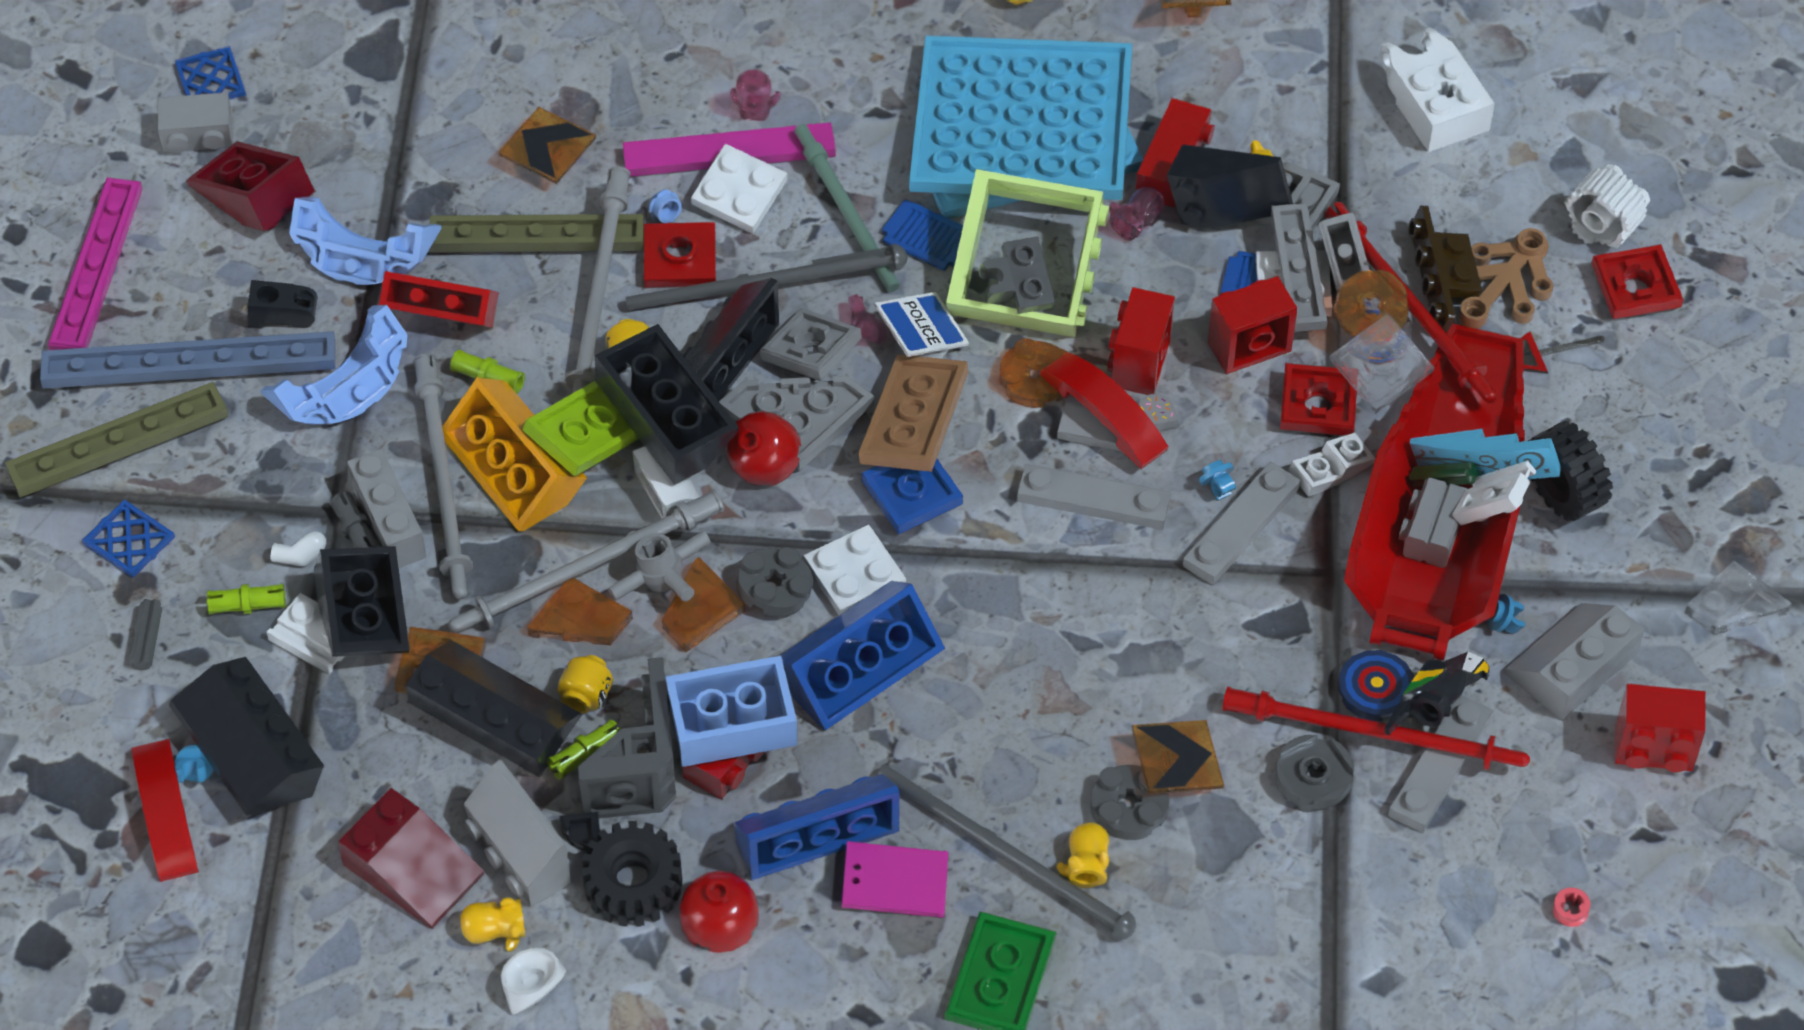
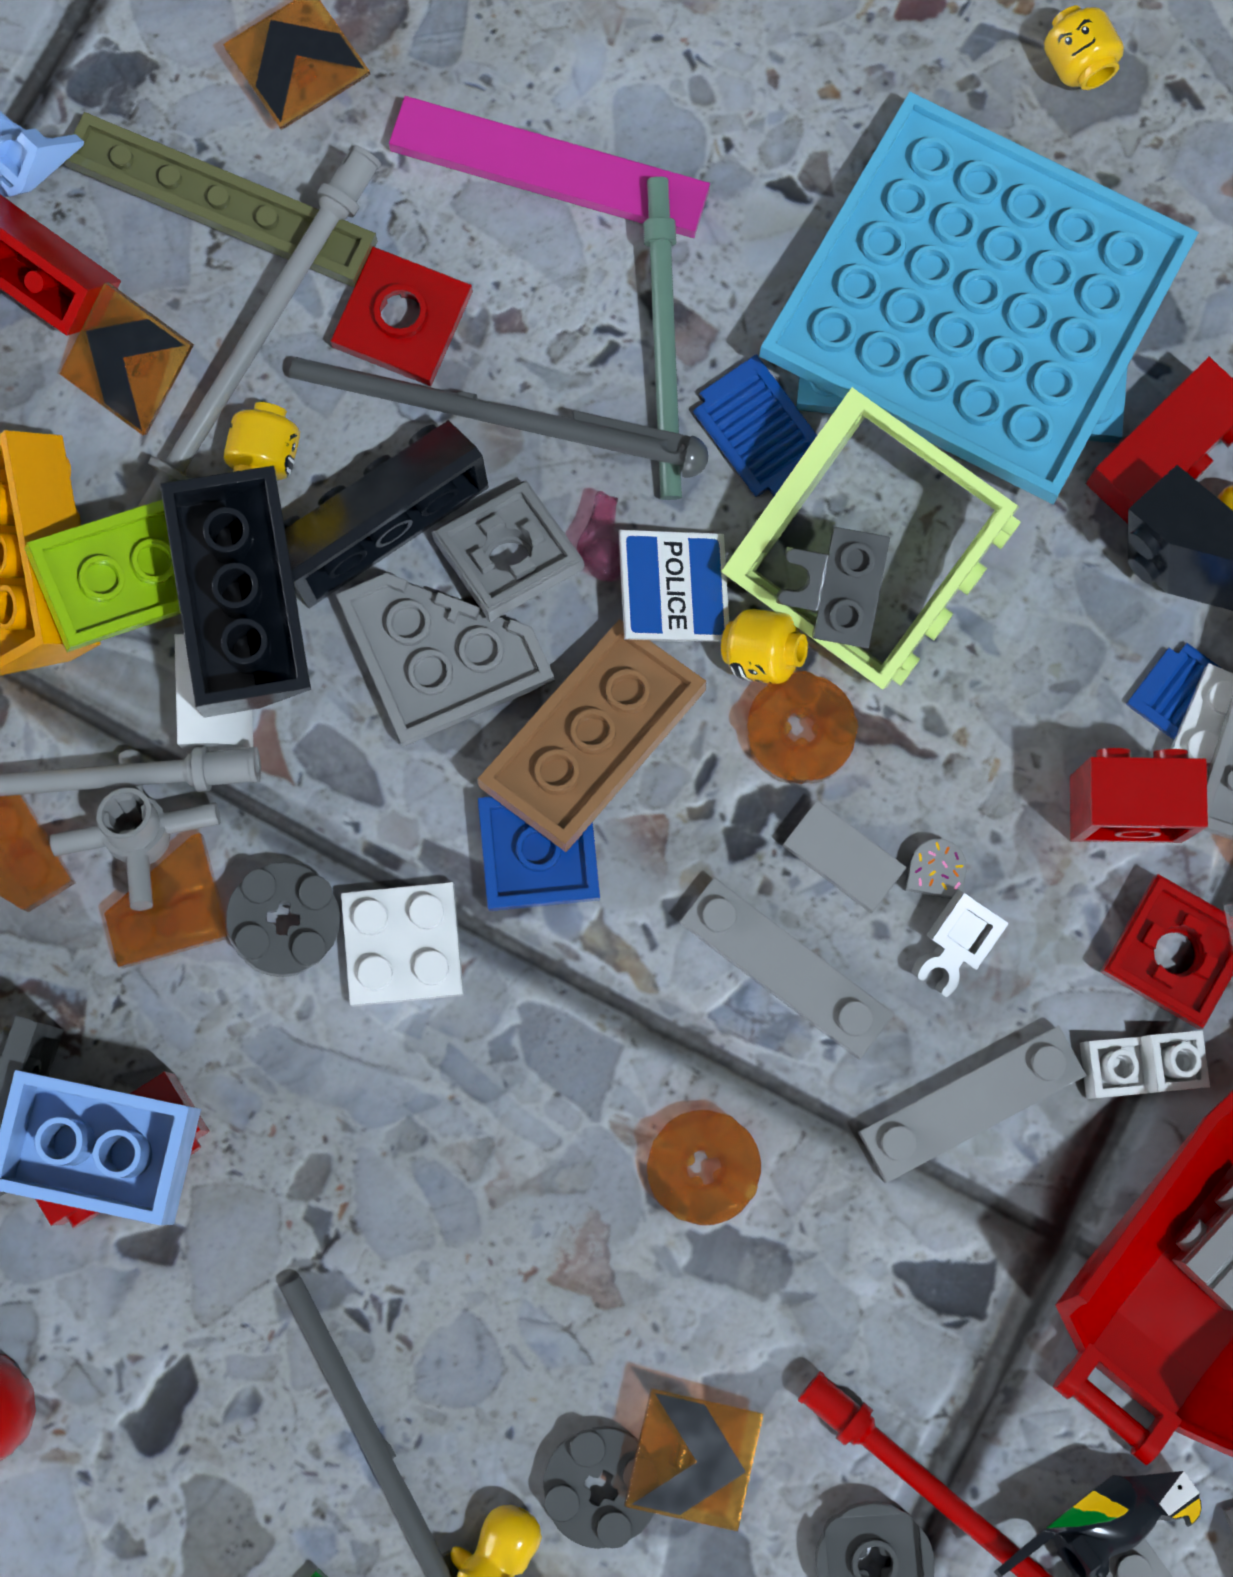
camera: 25 degrees right, 25 degrees up
(486, 368) = (52, 402): lime pin -> none
(524, 330) = (126, 358): none -> clear orange piece
(664, 206) = (414, 229): light blue plate -> none
(739, 188) = (529, 242): white plate -> none
(753, 95) = (620, 95): clear pink animal -> none
(763, 449) = (358, 701): red cylinder -> none
(818, 825) = (152, 1343): blue slope -> none
(860, 653) = (339, 1089): blue slope -> none
(895, 879) = (230, 1464): dark pink container -> none
(991, 334) = (763, 646): none -> yellow head
(1100, 595) = (733, 1182): none -> clear orange plate
(1109, 404) = (865, 840): red slope -> none
(1139, 212) = (1074, 523): clear pink animal -> none
(1141, 340) = (974, 750): red brick -> none
(1190, 437) = (964, 934): none -> plate
(1218, 477) = (970, 1017): dark azure plate -> none
(1373, 684) = (1030, 1457): dark blue tile -> none

